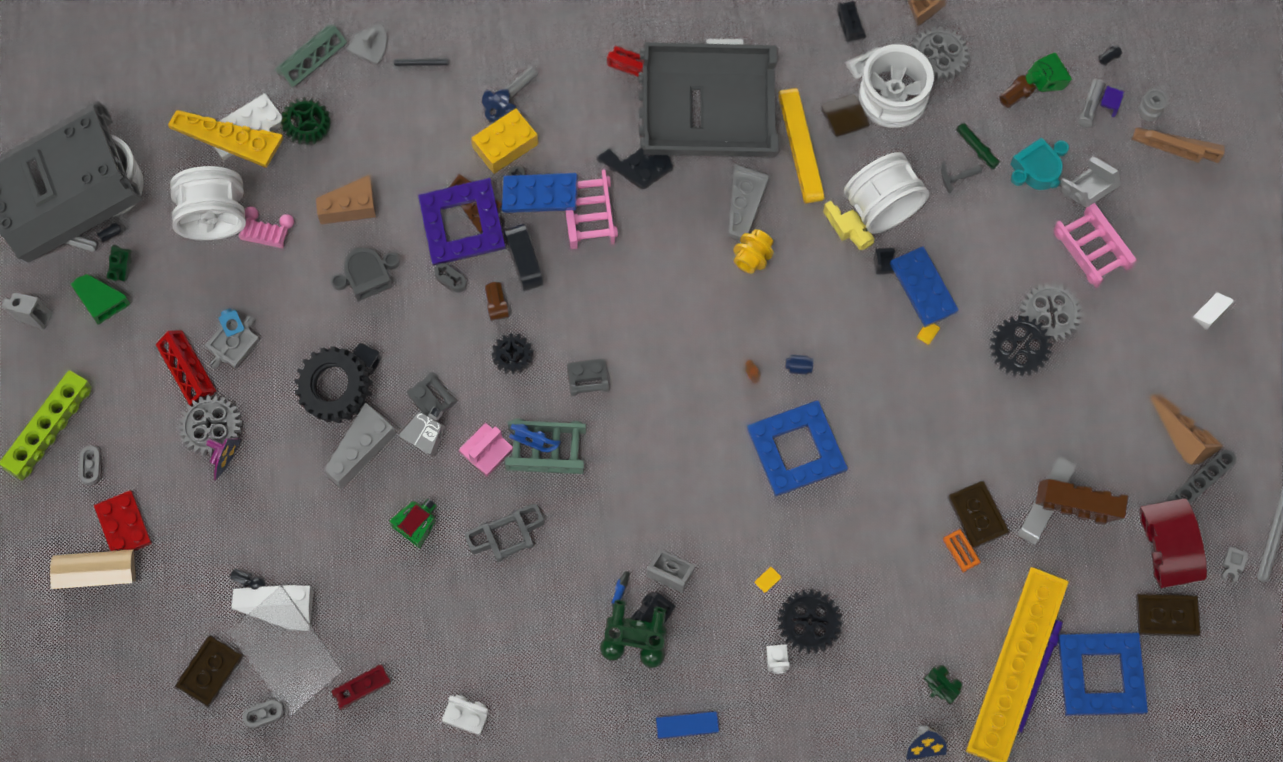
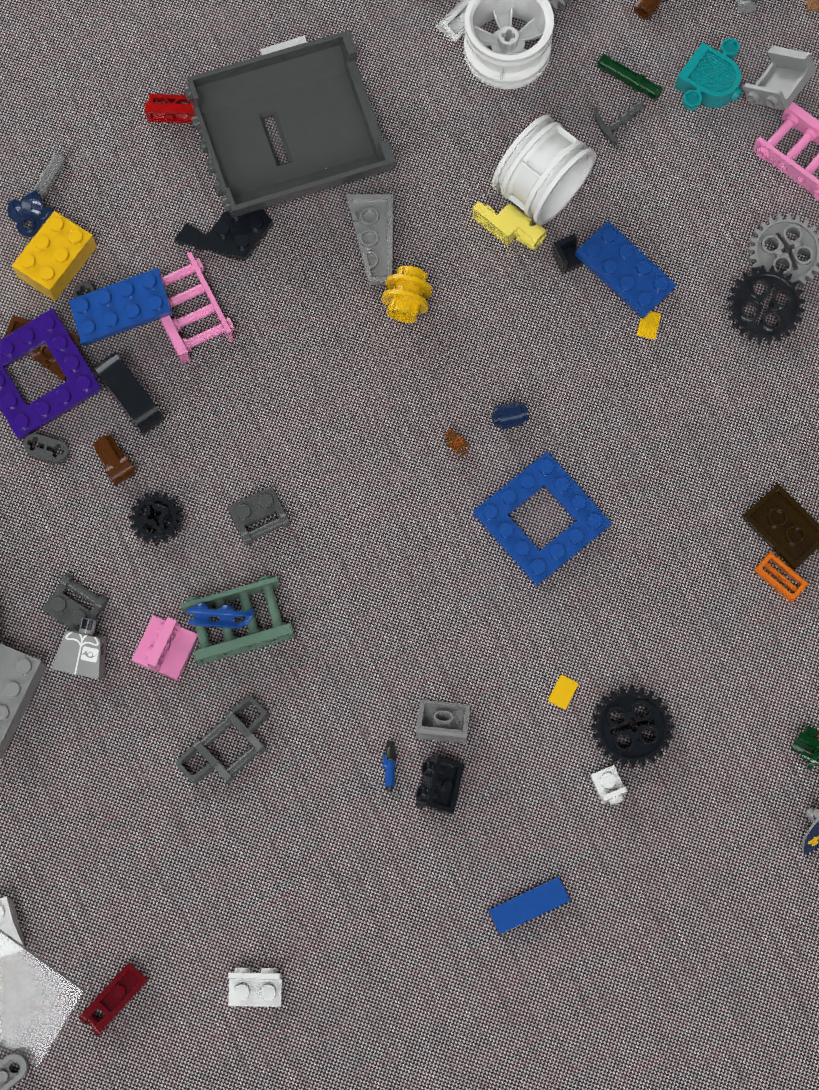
camera: 15 degrees left, 5 degrees up
(415, 522) = (109, 769): torso -> none
(635, 634) = (429, 818): dark green piece -> none
(801, 145) = (418, 145): yellow beam -> none
(845, 115) = (458, 90): dark brown slope -> none

